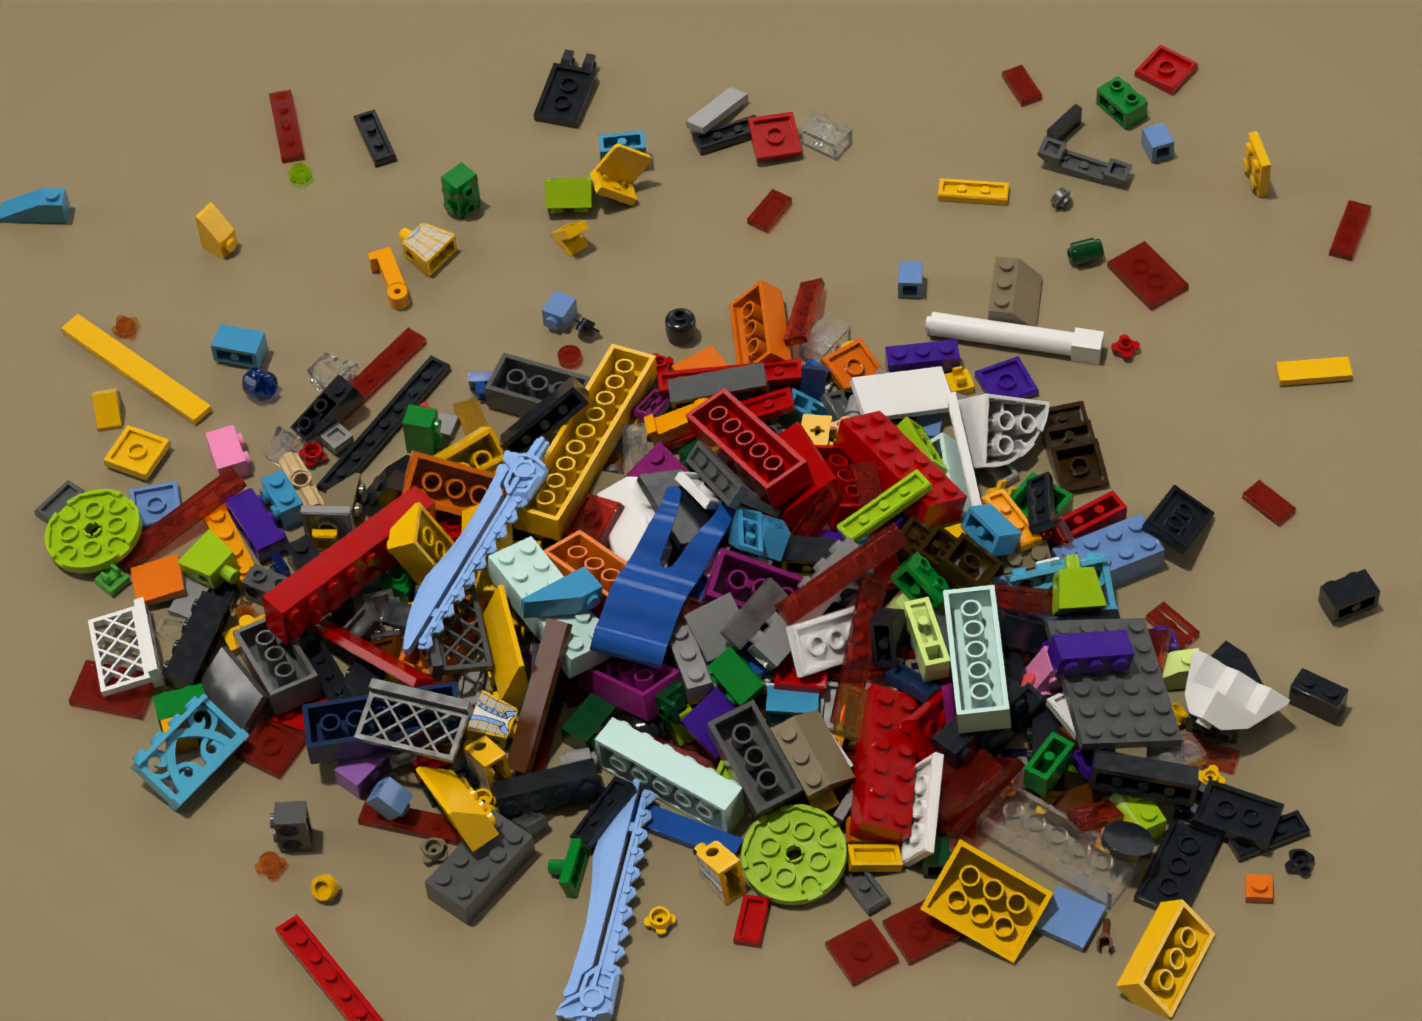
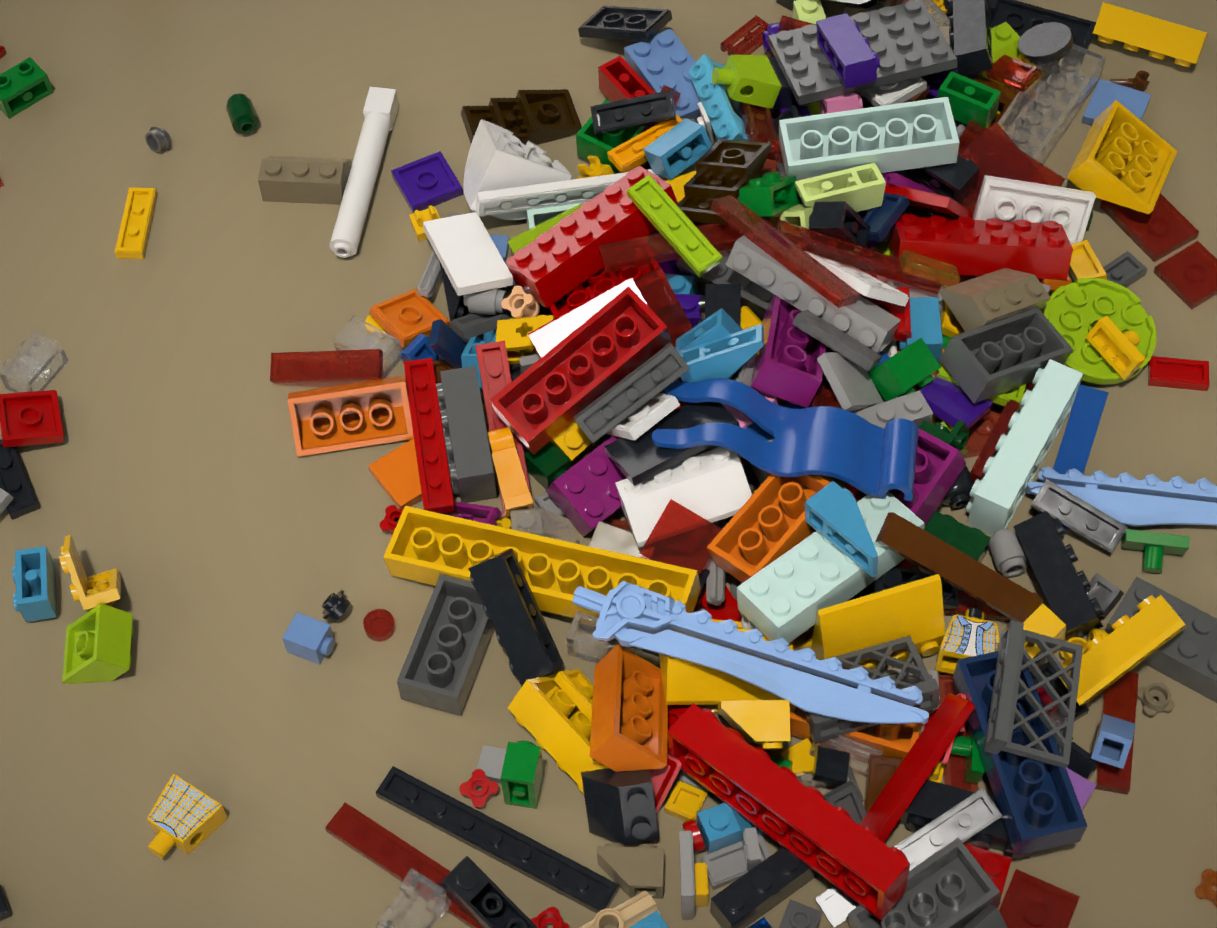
camera: 95 degrees left, 5 degrees up
(292, 826) = (1172, 854): dark grey brick -> none
(336, 438) = (525, 894): light grey plate -> none
(385, 263) = (235, 858): light orange leg -> none
(460, 191) = (93, 774): green brick -> none
(470, 415) = (484, 729): clear yellow tile -> none
(478, 381) = (430, 720): blue tile -> none
(571, 237) = (174, 637): yellow slope -> none
(656, 914) = (1201, 450): yellow plate -> none
(680, 325) = (340, 496): black head -> none
(720, 871) = (1134, 394): yellow torso -> none
(765, 855) = (1116, 347): none -> yellow tile
(769, 210) = (147, 422): clear red tile -> none
(910, 279) = (274, 270): medium blue brick -> none
(923, 356) = (401, 250): dark purple brick -> none
(1065, 123) = (49, 137): black tile -> none
(1082, 166) = (112, 119): dark grey slope -> none
(1125, 347) = (379, 79): red plate -> none
(1147, 275) = (275, 66): clear red tile -> none
(1157, 142) = (84, 56): medium blue brick -> none

